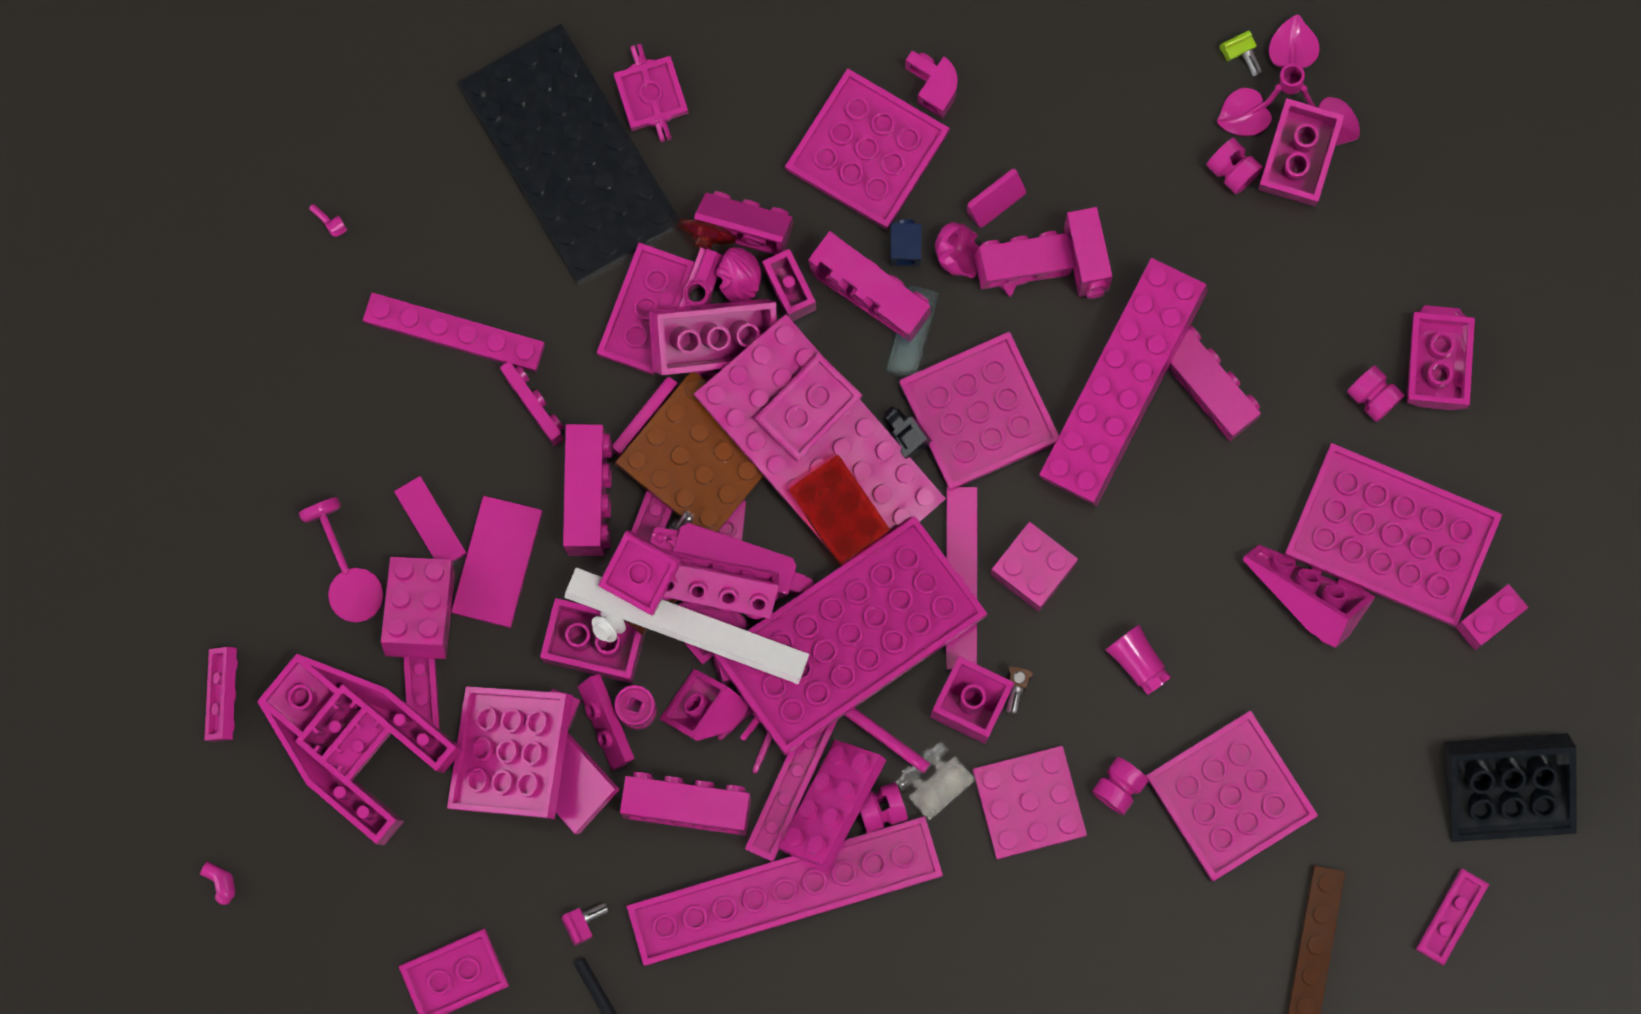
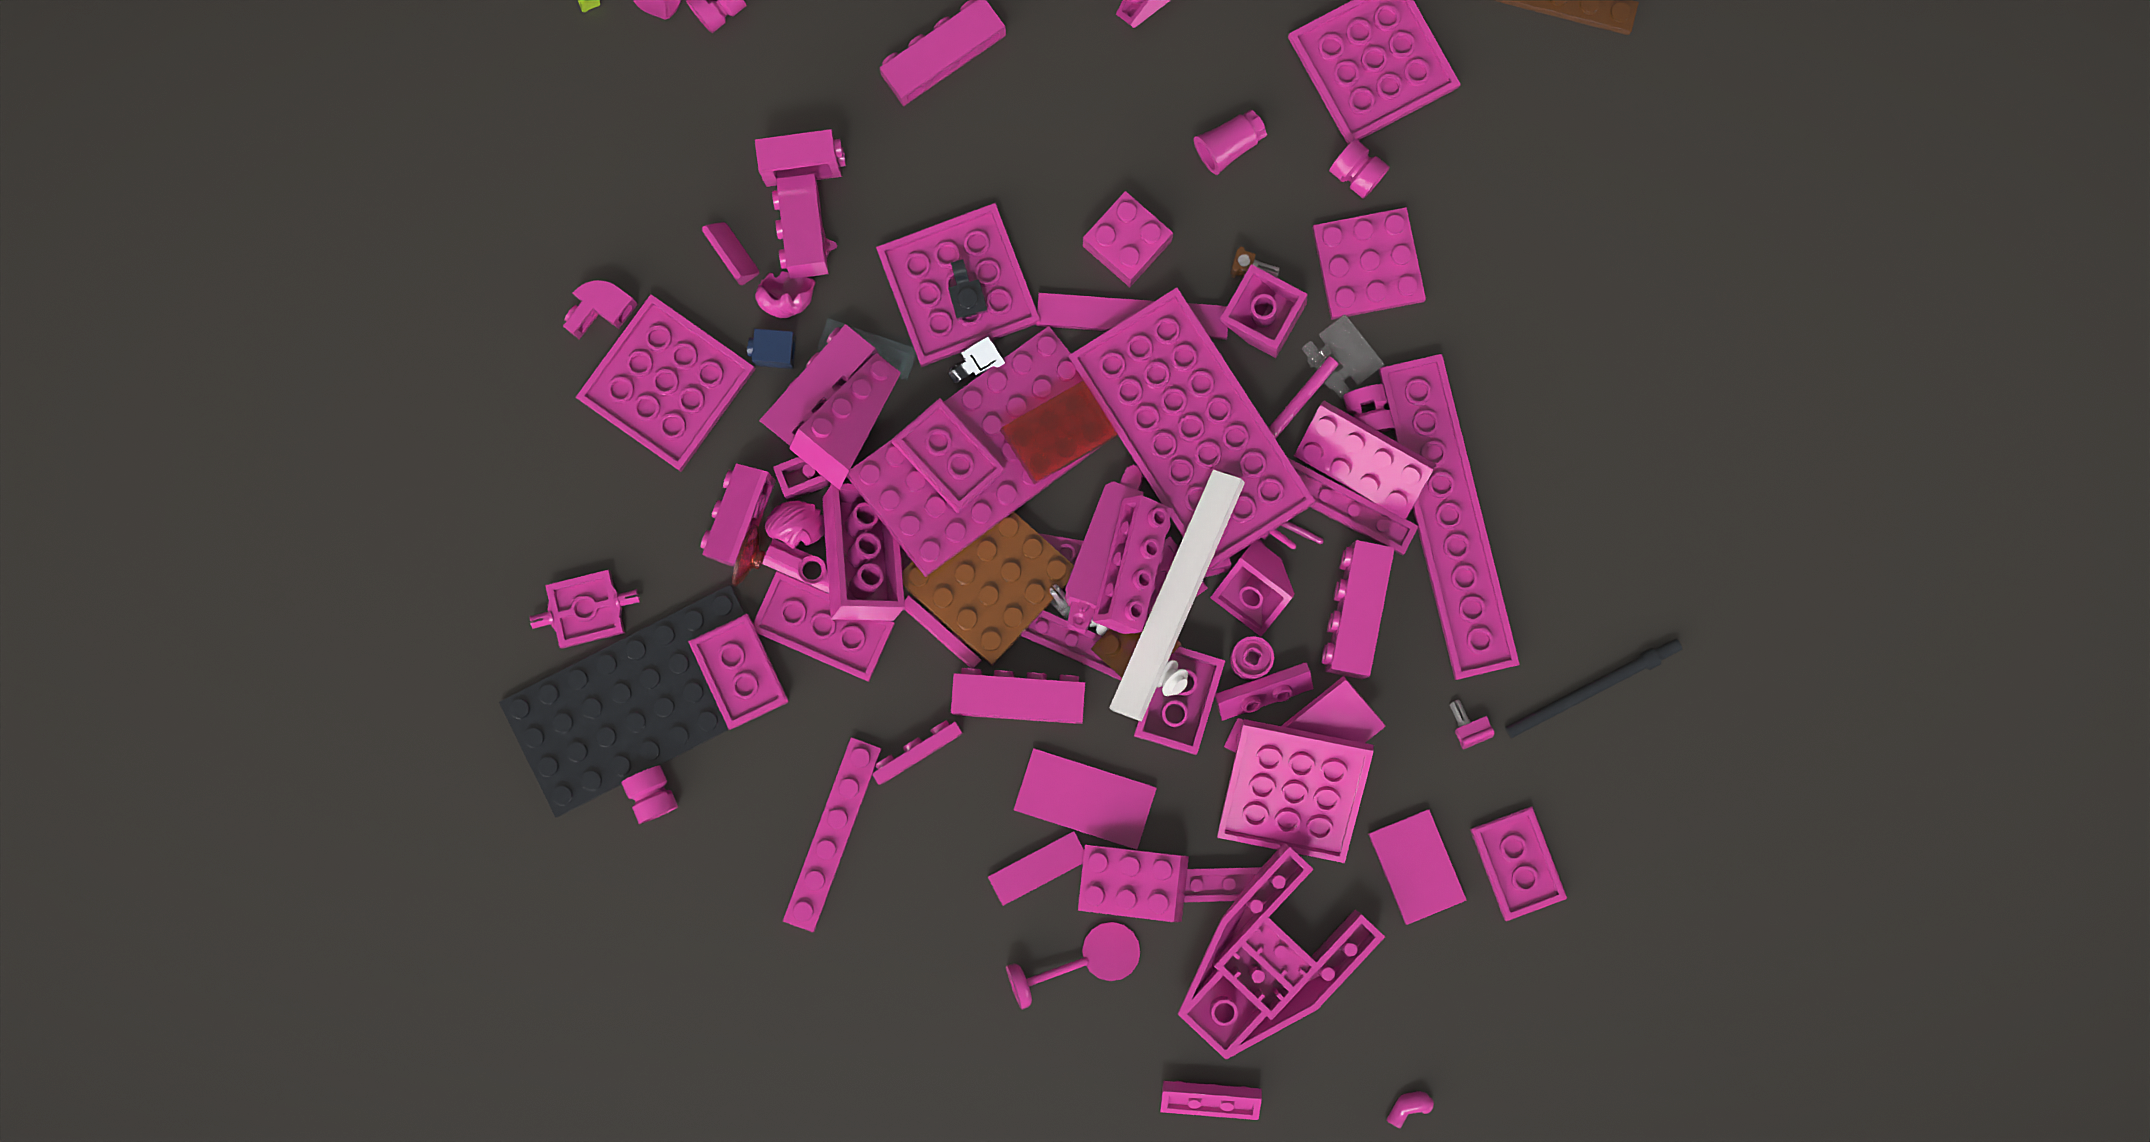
camera: 90 degrees left, 5 degrees up
(334, 226) = (705, 959): dark pink hand -> none
(446, 878) = (1417, 867): none -> dark pink tile
(482, 163) = (649, 794): none -> dark pink wheel
(598, 234) = (738, 671): none -> dark pink tile
(640, 572) = (1122, 637): dark pink tile -> none
(831, 308) = (842, 424): none -> dark pink wedge
(967, 418) = (966, 295): none -> black plate
(1124, 382) = (940, 129): dark pink brick -> none

